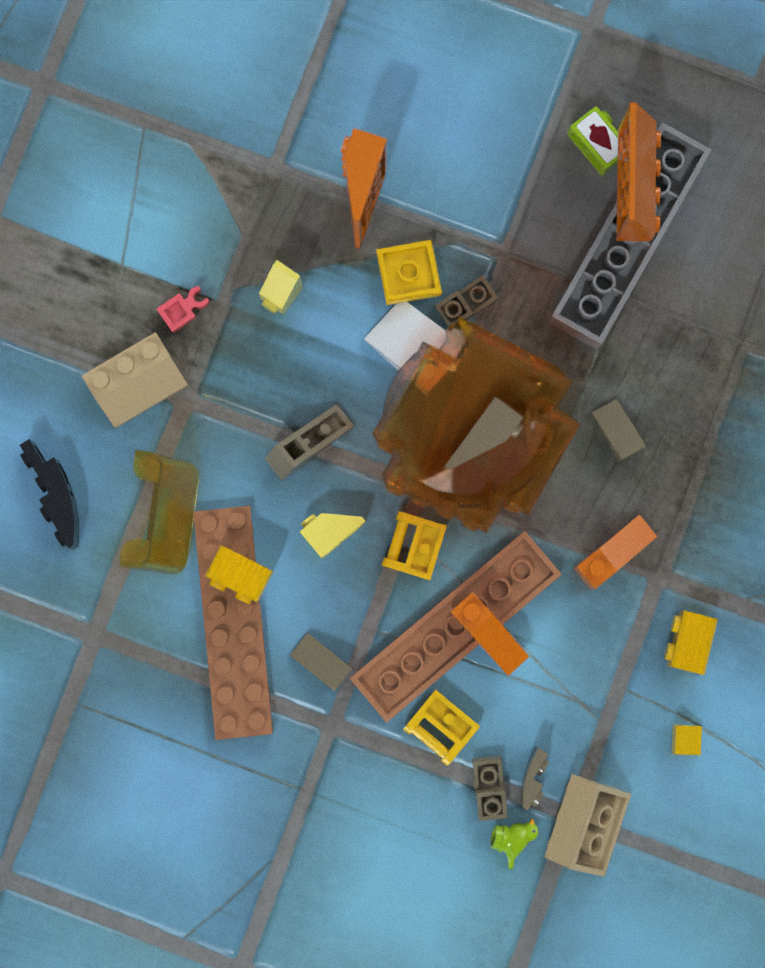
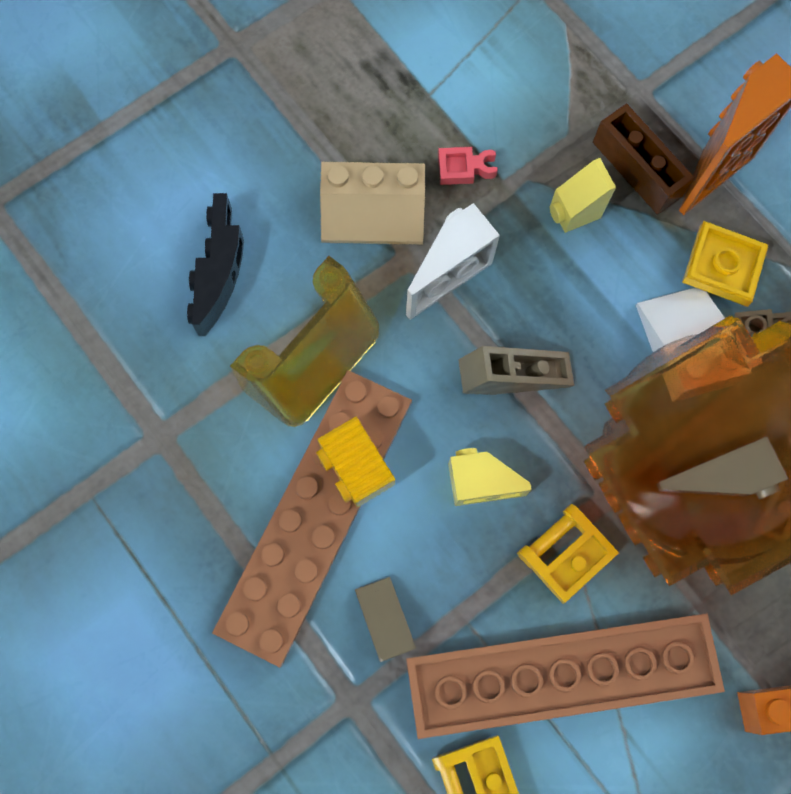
camera: 30 degrees right, 10 degrees down
(218, 383) = (458, 254): none -> white slope
(306, 230) = (642, 159): none -> reddish brown brick
(489, 633) = (603, 708): orange slope -> none

